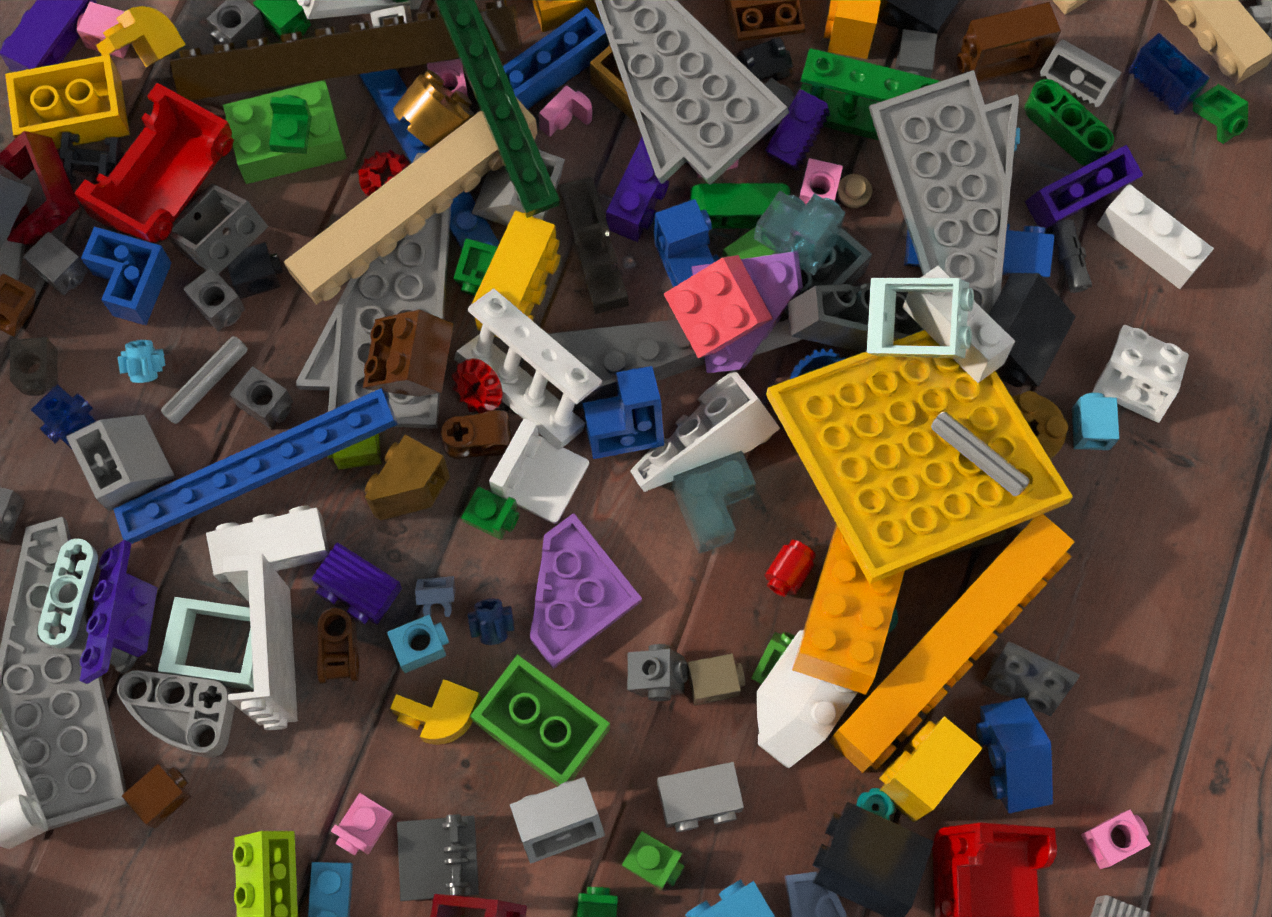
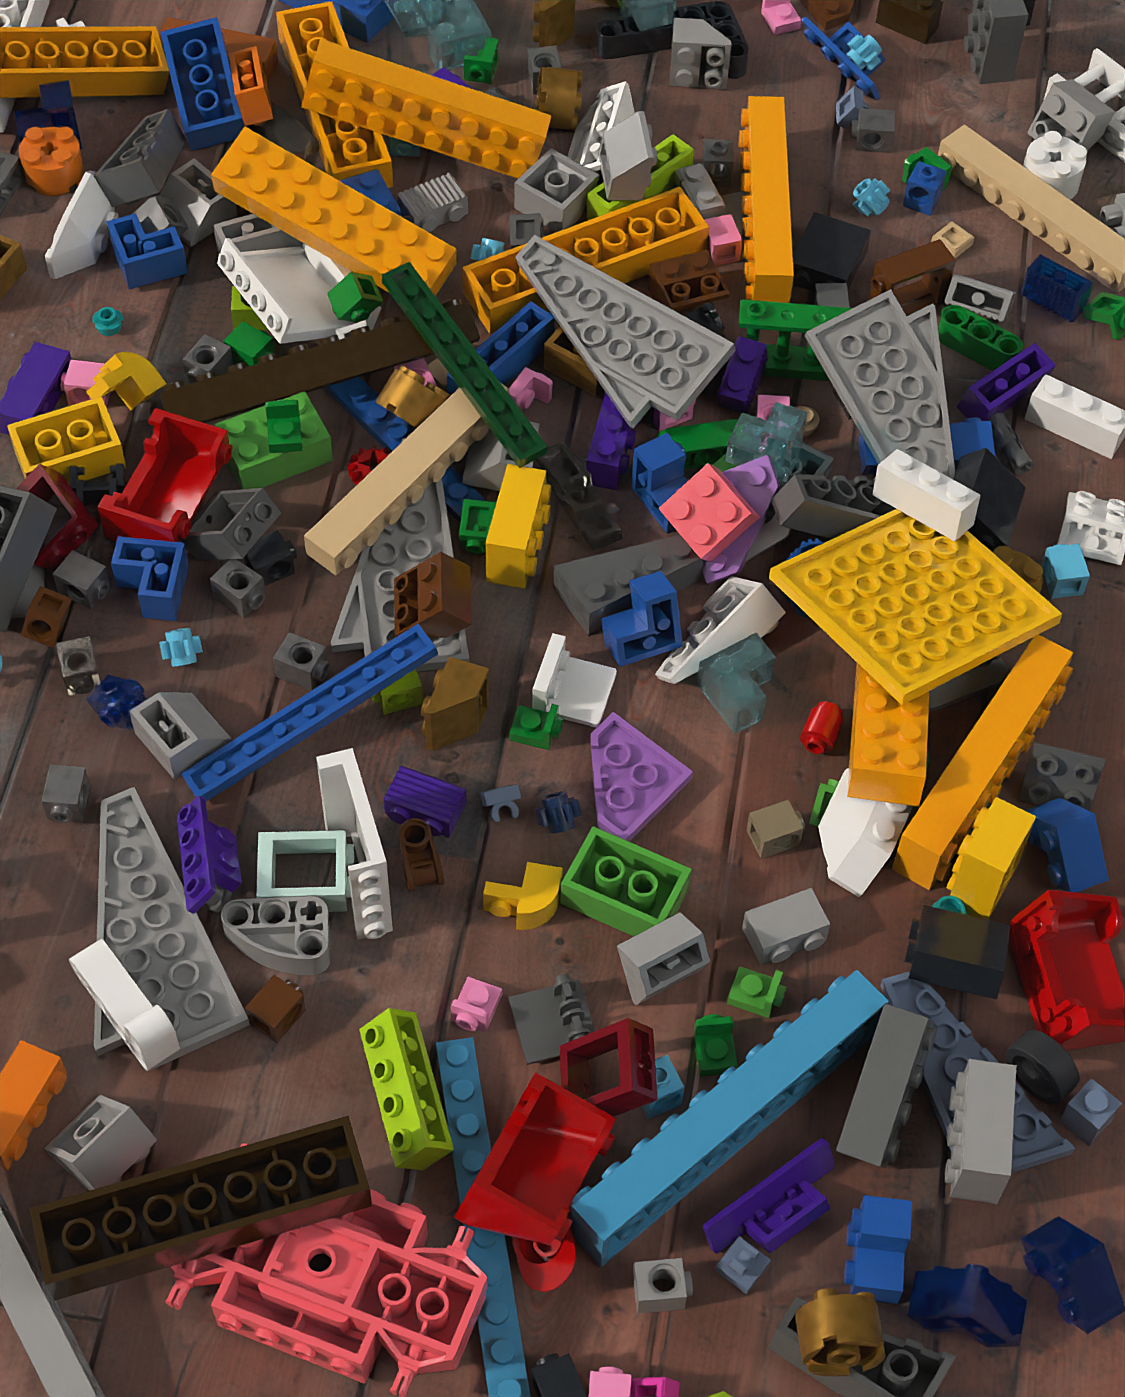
camera: 10 degrees left, 15 degrees down
(49, 617) = (163, 859): light aqua beam -> none
(204, 380) = (241, 657): light grey axle -> none
(283, 540) = (301, 785): white brick -> none
(403, 636) = (489, 854): medium azure brick -> none
(481, 435) = (511, 660): reddish brown piece -> none
(489, 392) = (513, 621): red gear -> none
(552, 362) = (533, 618): white fence -> none
(657, 672) = (722, 829): dark grey brick -> none
(882, 316) = (857, 488): light aqua window -> none
(980, 454) = (972, 589): light grey axle -> none

